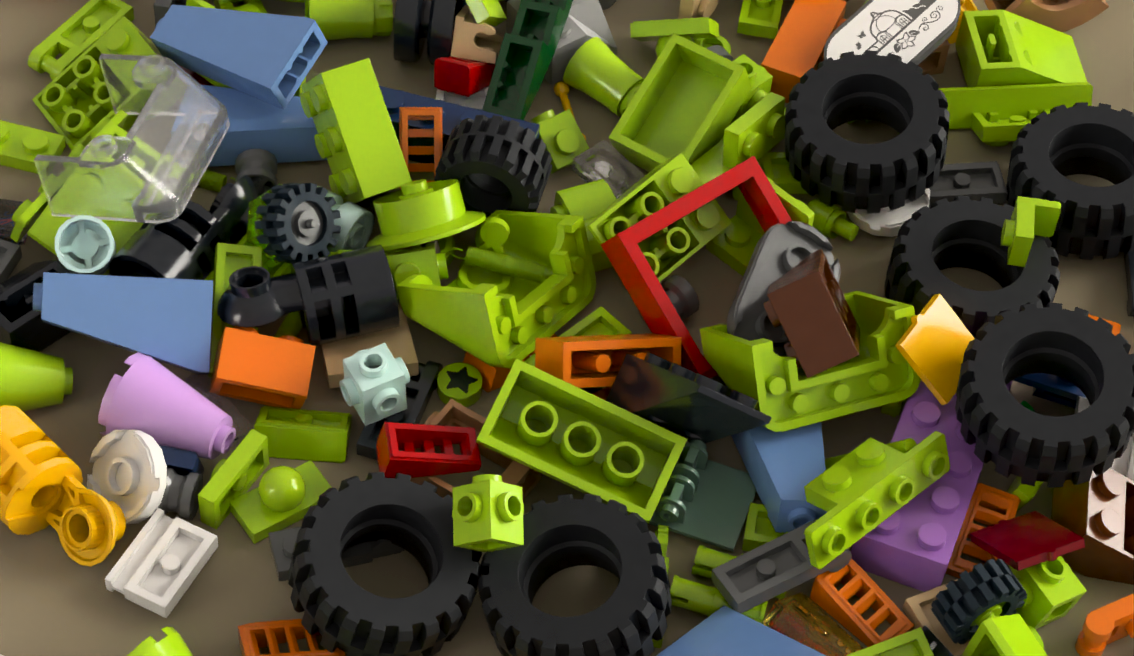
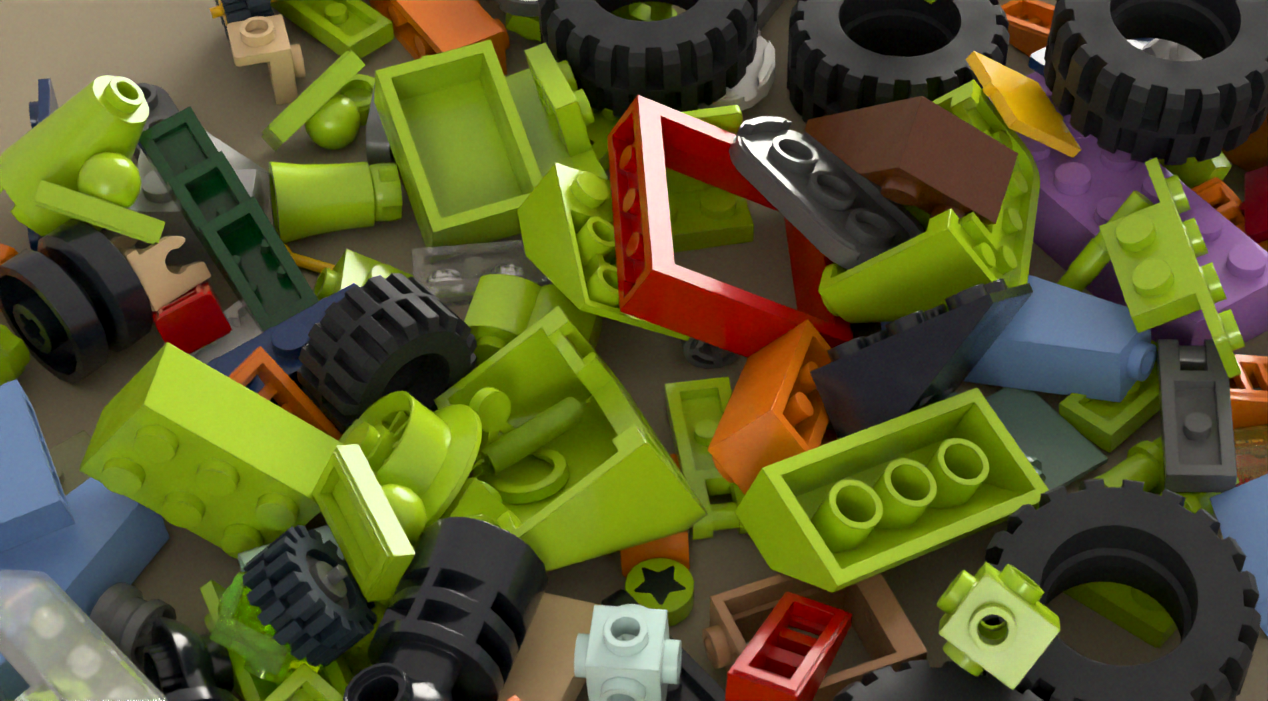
camera: 50 degrees left, 5 degrees down
(362, 220) = (369, 521): none -> lime tile

